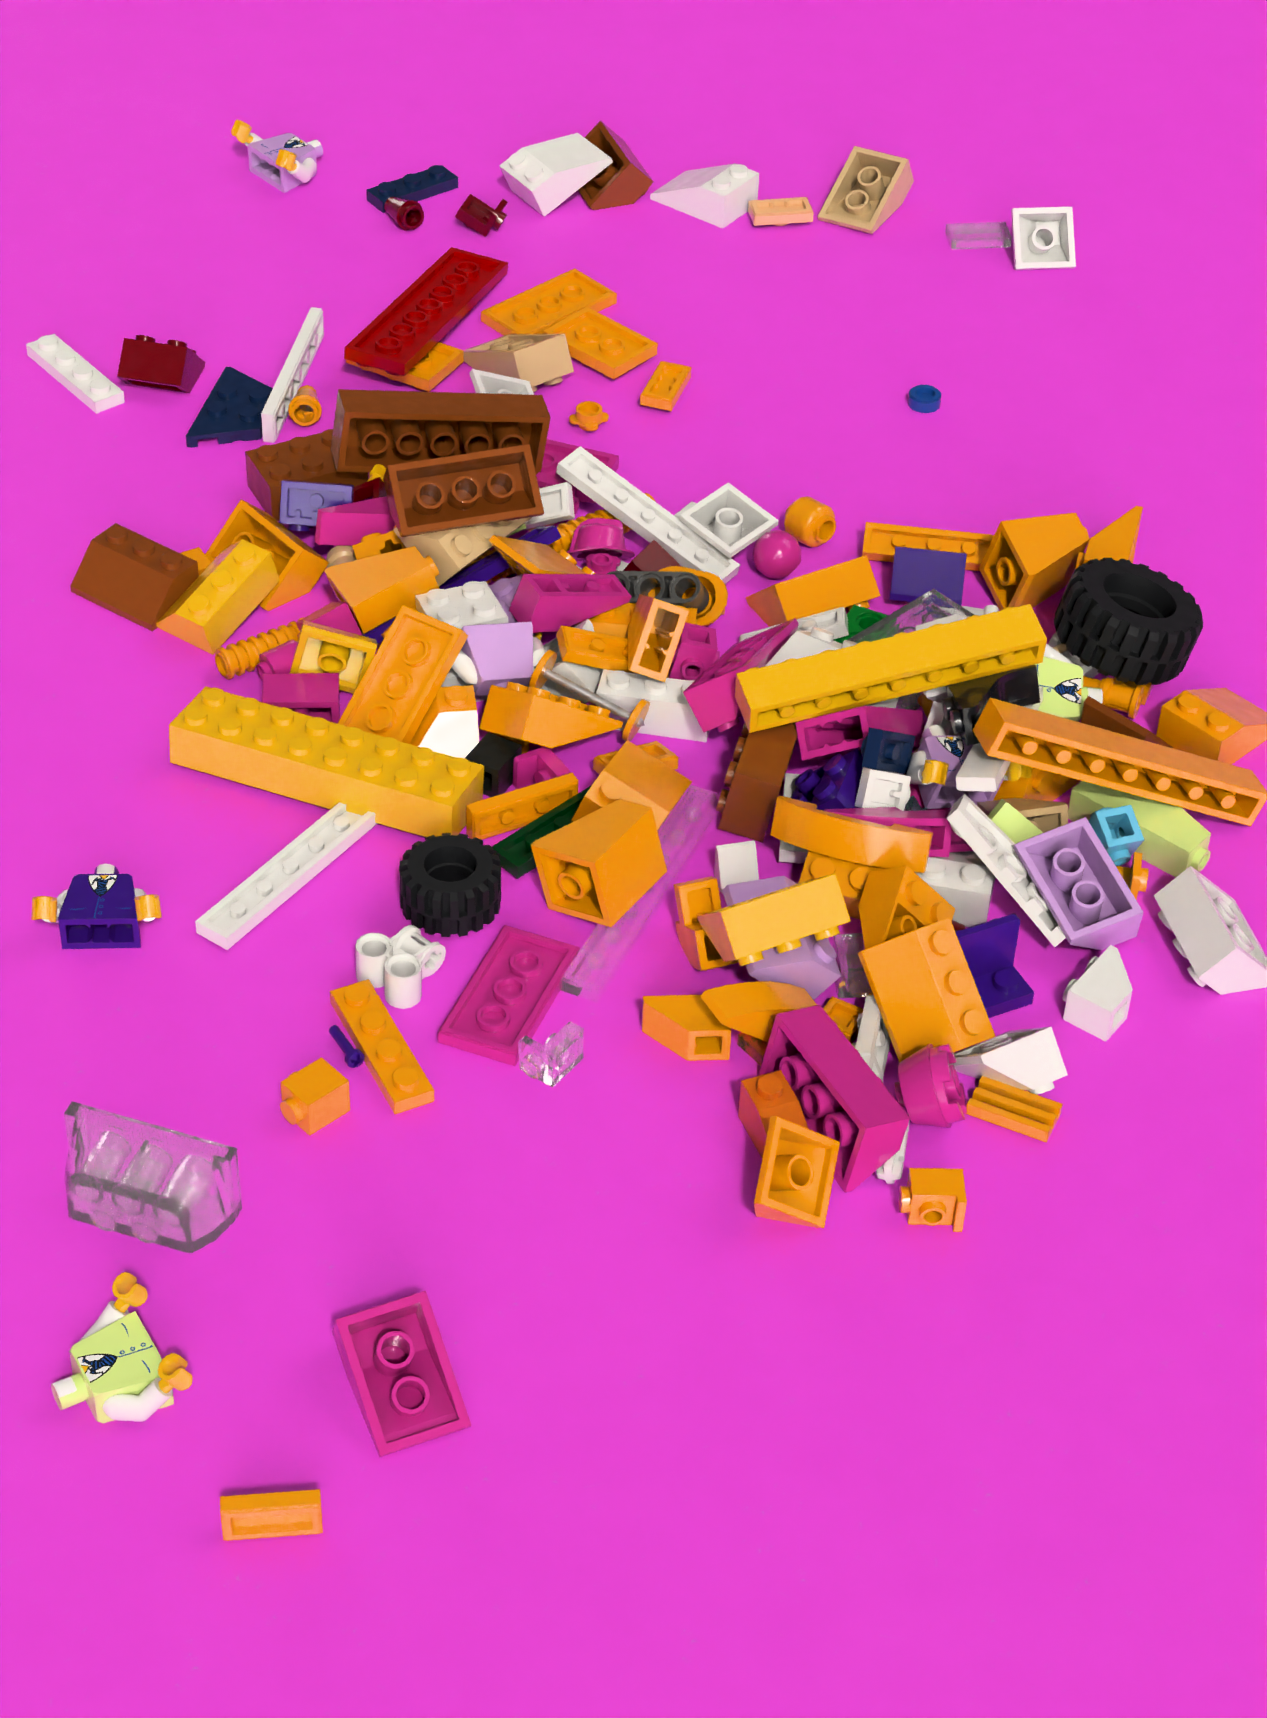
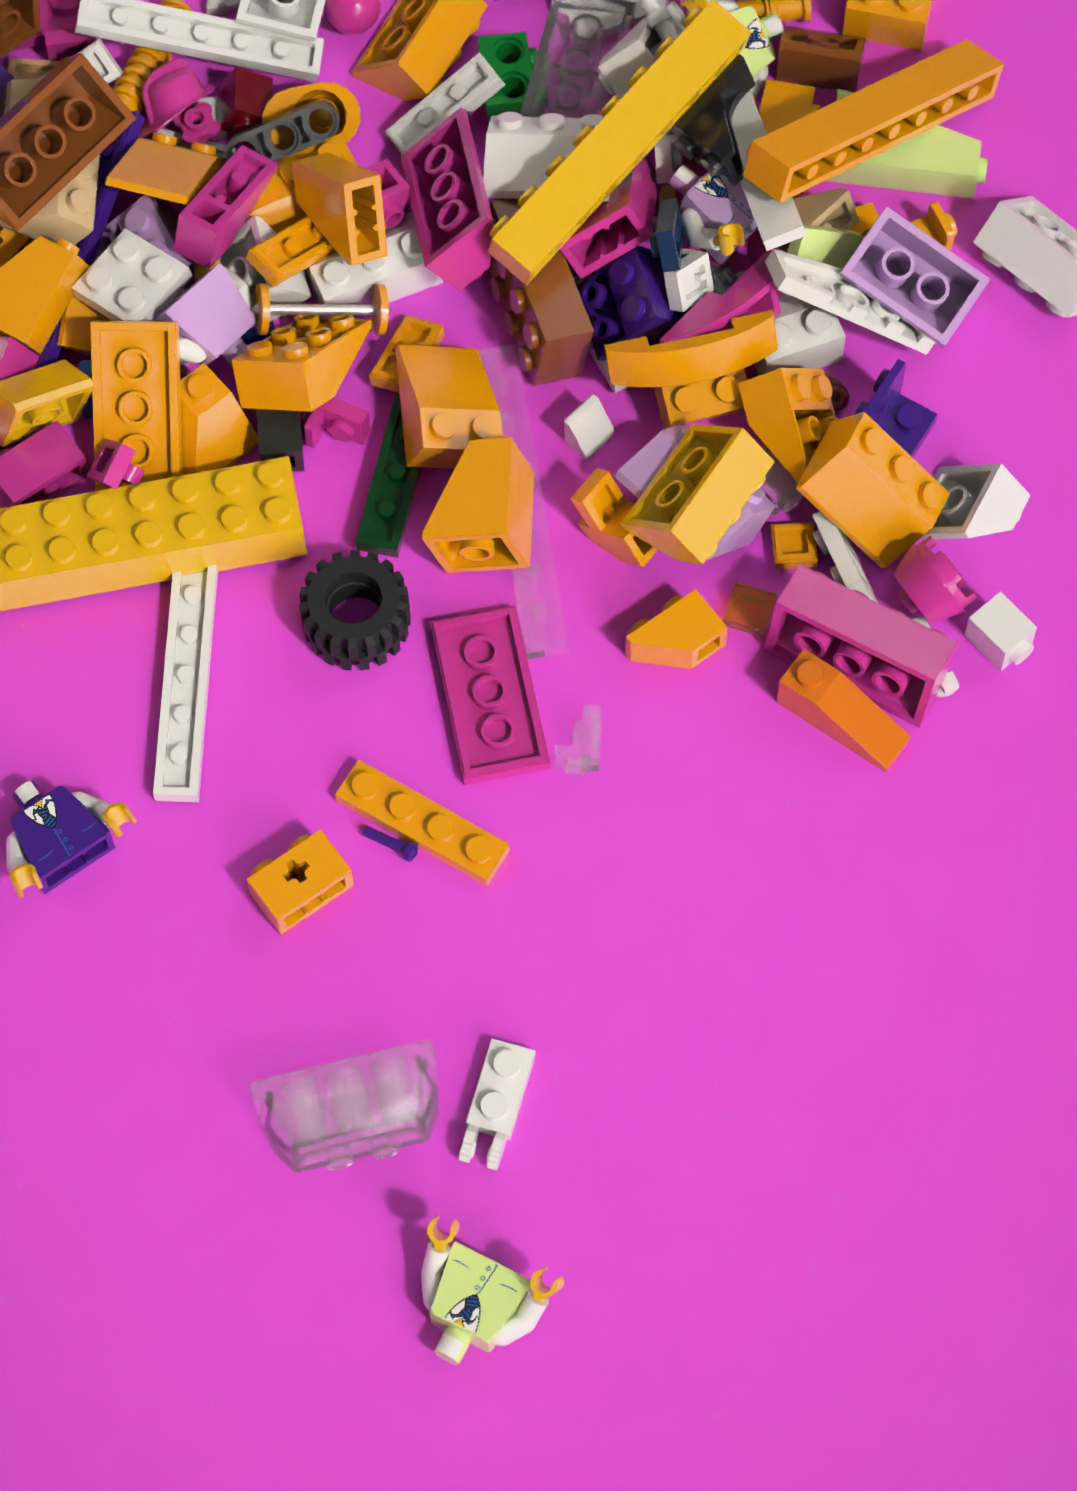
camera: 30 degrees left, 25 degrees up
(249, 1028) = (287, 900): none -> light orange brick
(264, 1254) = (497, 1099): none -> white hinge
(271, 1514) = (708, 1349): light orange tile -> none
(314, 1096) = (414, 919): light orange brick -> none
(351, 711) = (114, 465): none -> dark pink tile
(398, 964) = (375, 720): white piece -> none
(400, 1373) = (706, 1150): dark pink slope -> none
(518, 806) = (345, 475): light orange tile -> none
(754, 1005) = (740, 587): light orange slope -> none
(795, 1174) = (884, 749): light orange slope -> none
(934, 1197) = (1006, 694): light orange brick -> none
(969, 1148) = (1001, 632): none -> white brick
(1015, 1105) = (1017, 535): light orange tile -> none
(1100, 996) = (999, 383): white slope -> none
(1117, 832) = (901, 190): medium azure brick -> none

